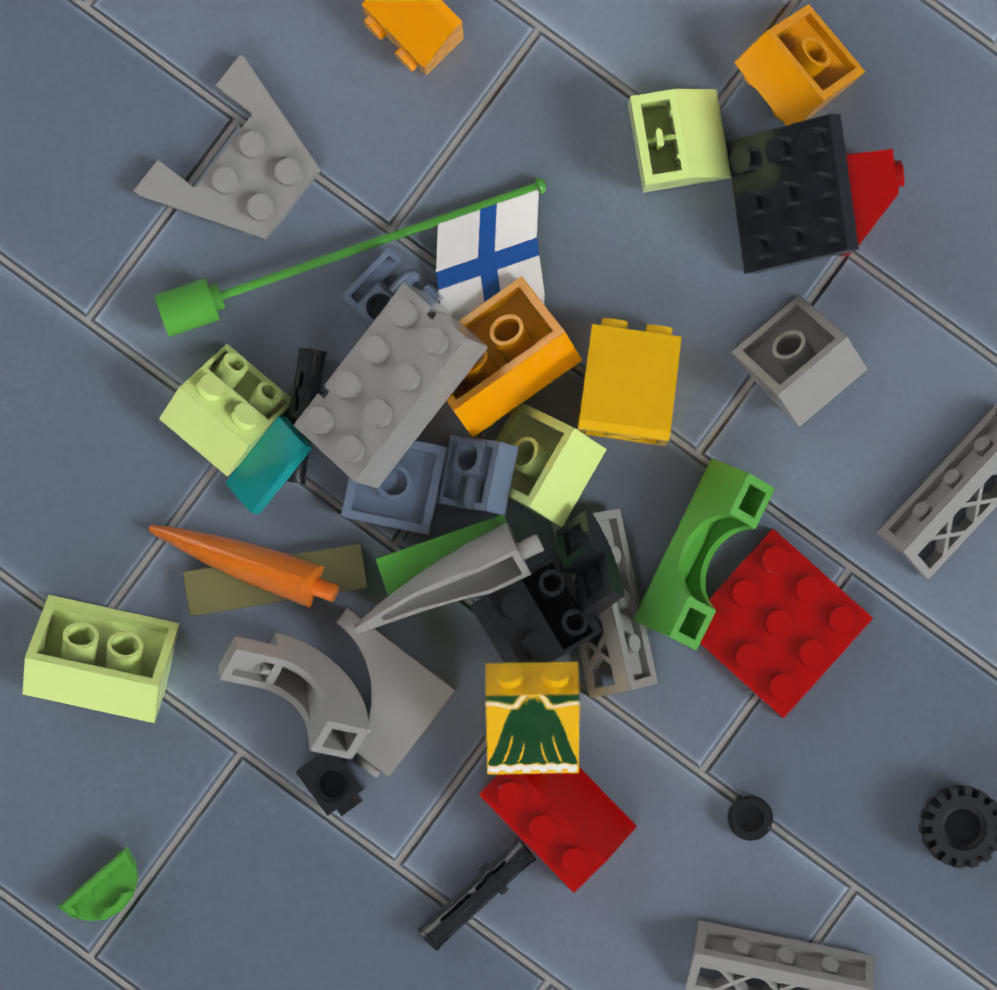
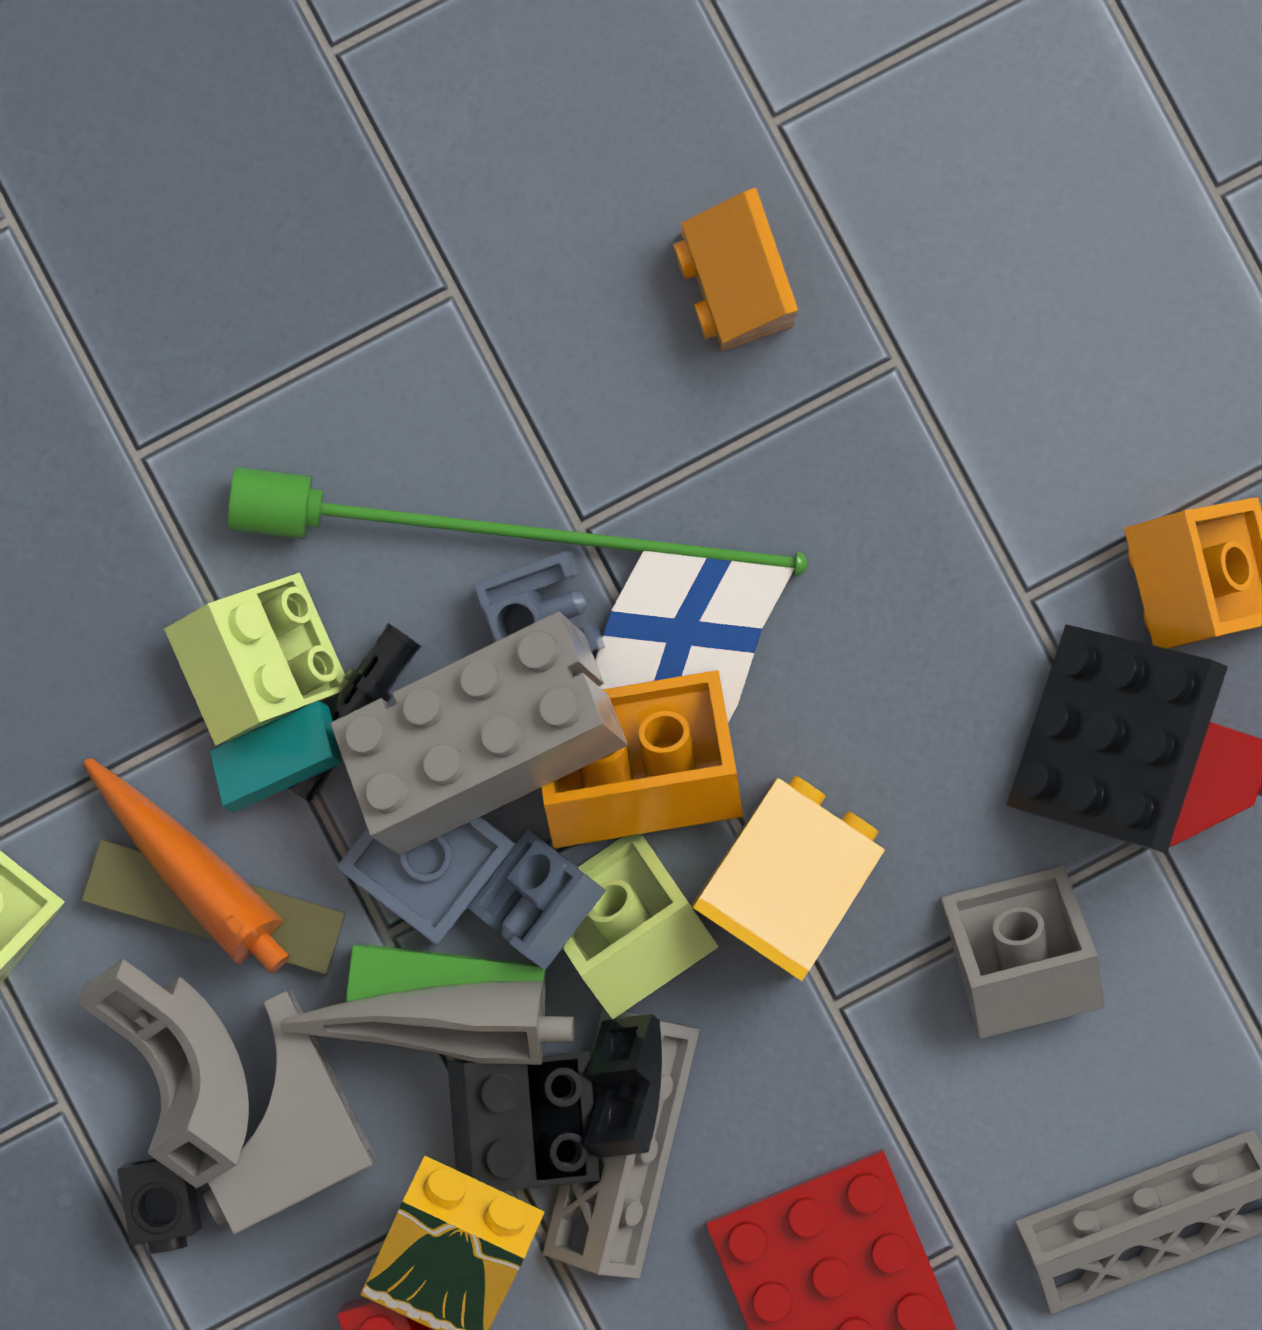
camera: 25 degrees right, 0 degrees up
(255, 175) = (440, 374): light grey wing -> none
(678, 138) = (1006, 591): yellowish green slope -> none
(721, 506) = (717, 1181): bright green arch -> none

